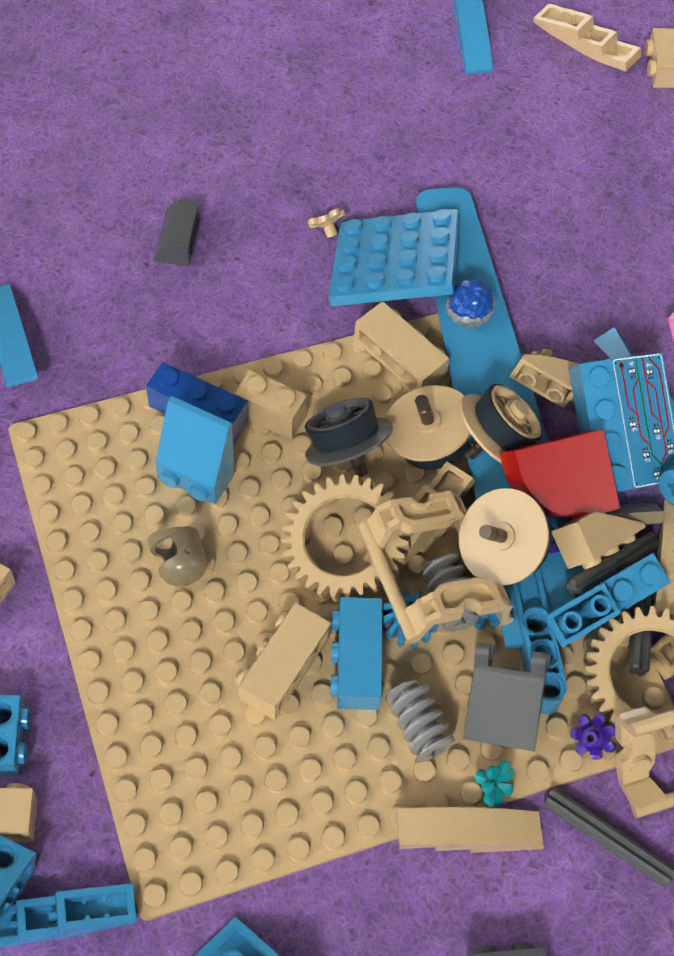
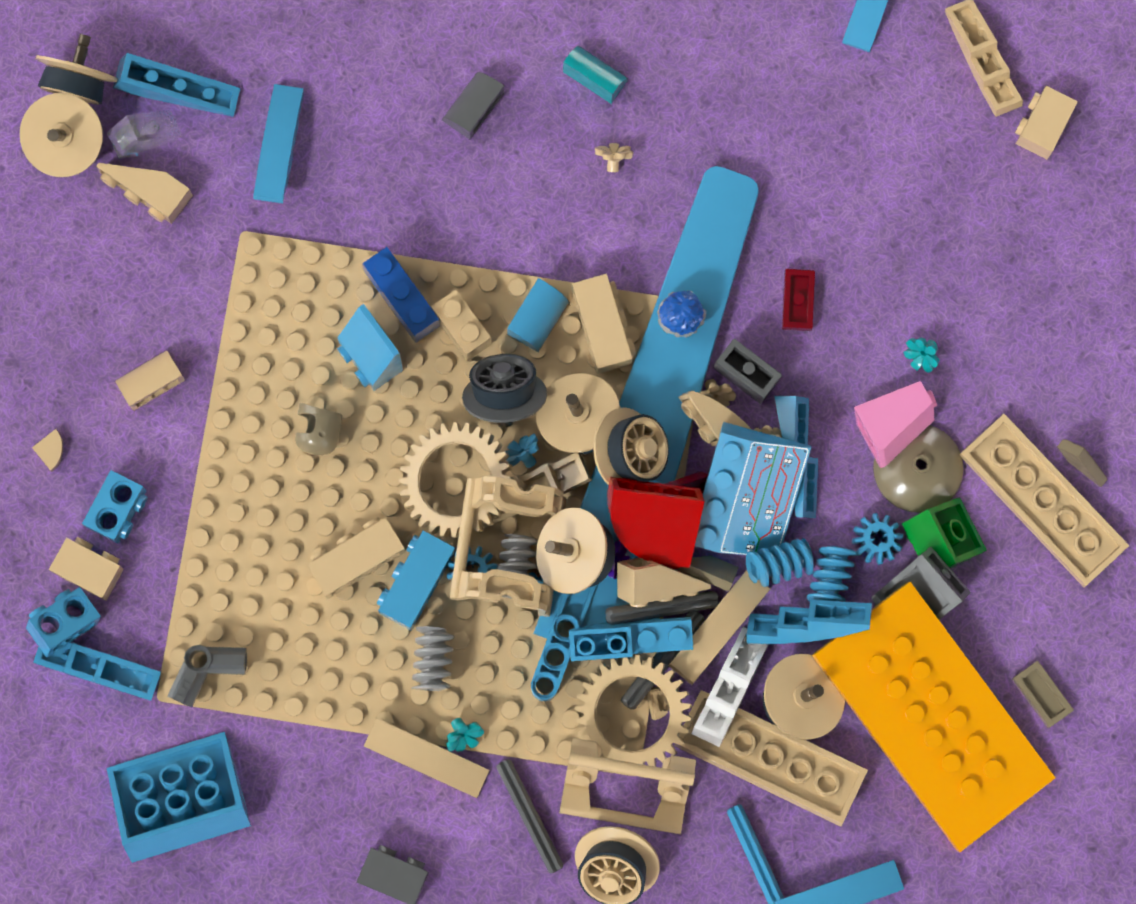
camera: 25 degrees right, 20 degrees up
(172, 868) = (219, 661): none -> dark grey piece
(272, 170) = (594, 74): none -> teal brick
(336, 367) = (537, 315): none -> dark azure brick
(395, 258) = (645, 231): dark azure plate -> none
(395, 483) = (523, 451): none -> dark azure plant
(505, 702) = (505, 677): flag -> none
(556, 329) = (747, 371): none -> dark grey brick
(559, 263) = (798, 299): none -> dark red plate
(600, 733) = (559, 736): dark purple plant -> none

